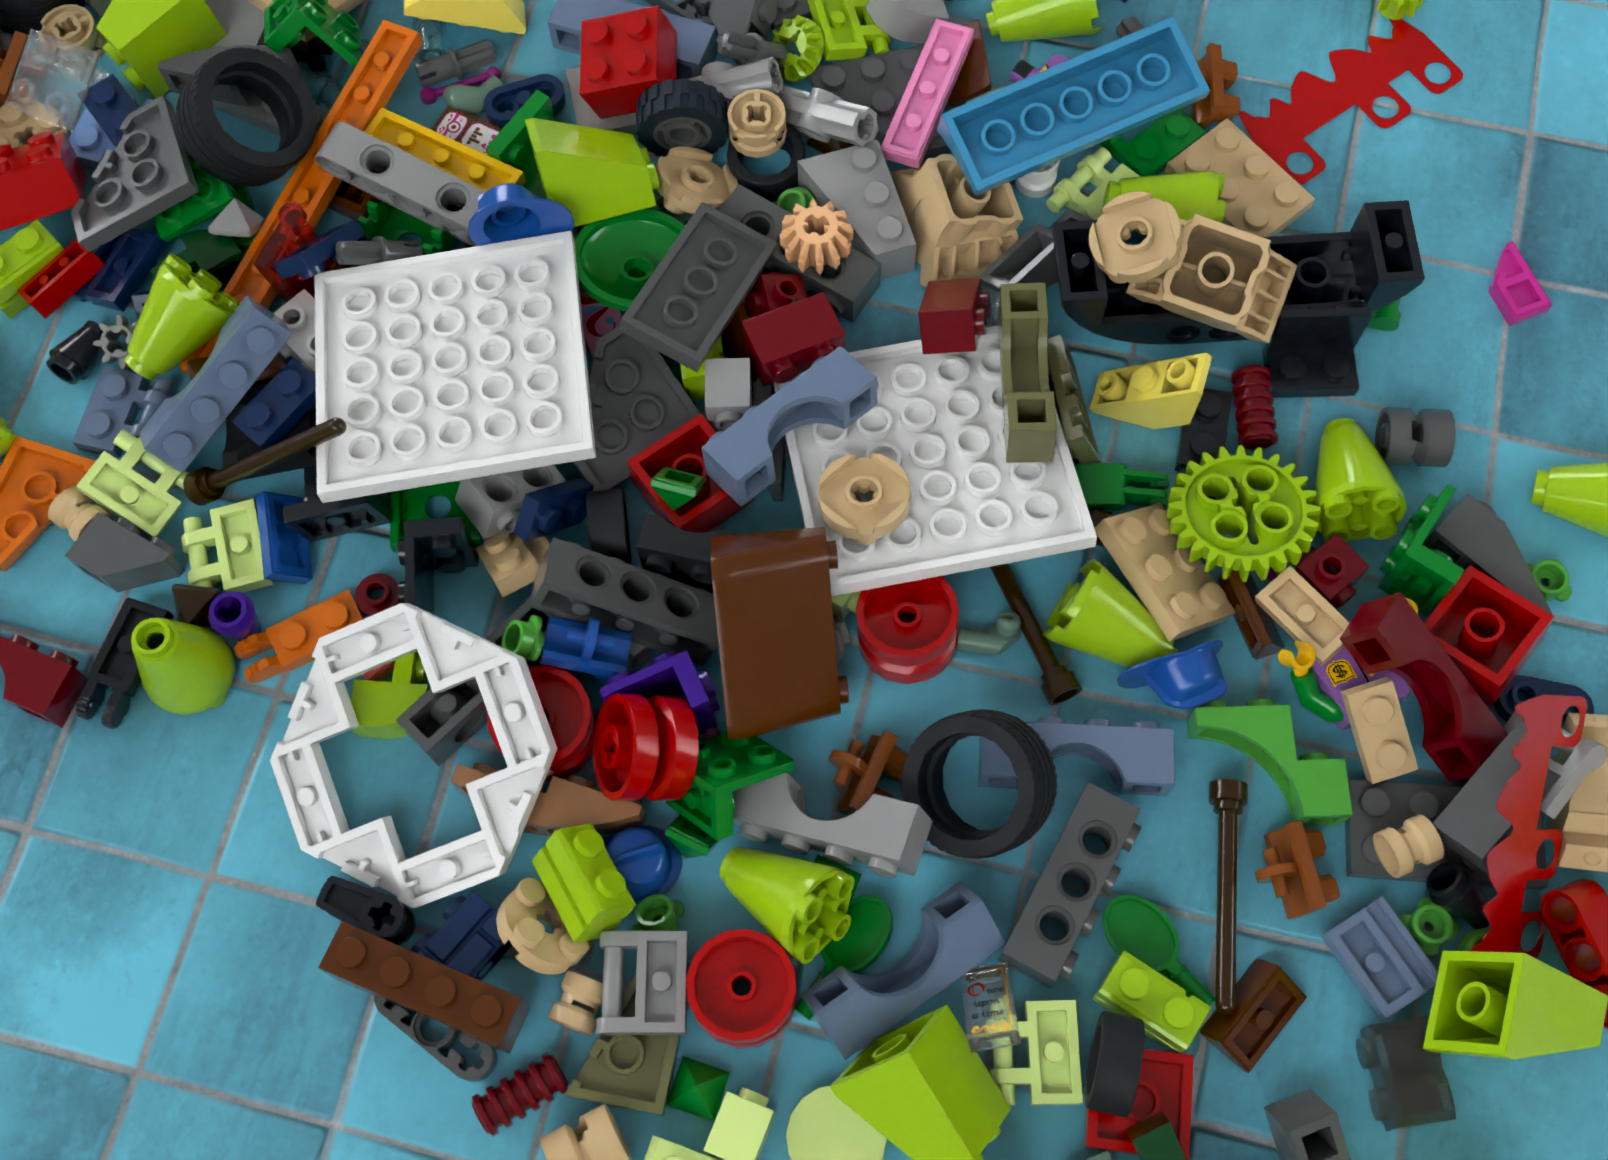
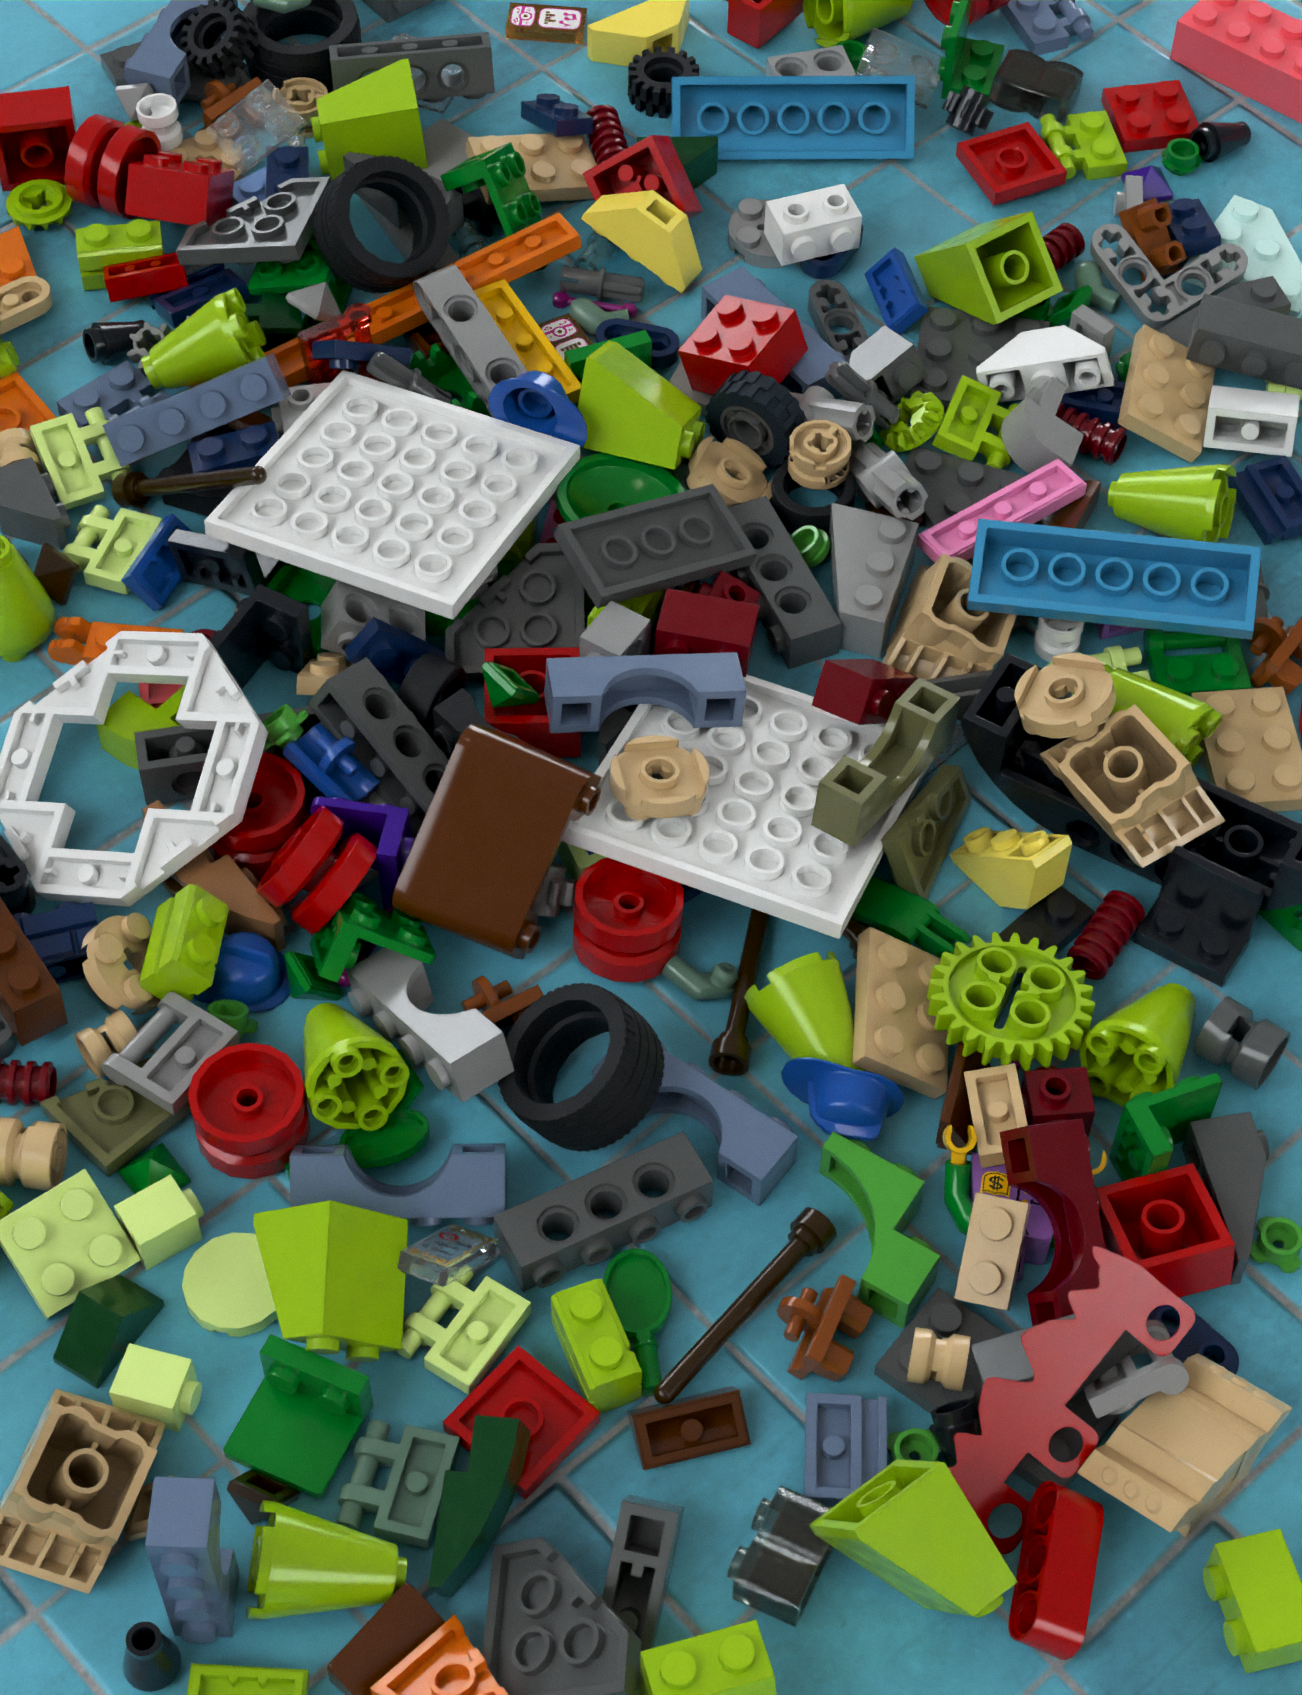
camera: 30 degrees right, 15 degrees down
(234, 616) = (74, 591): dark purple cone -> none
(816, 236) = (794, 565): light nougat gear -> none
(1114, 1064) = (512, 1350): black tyre -> none

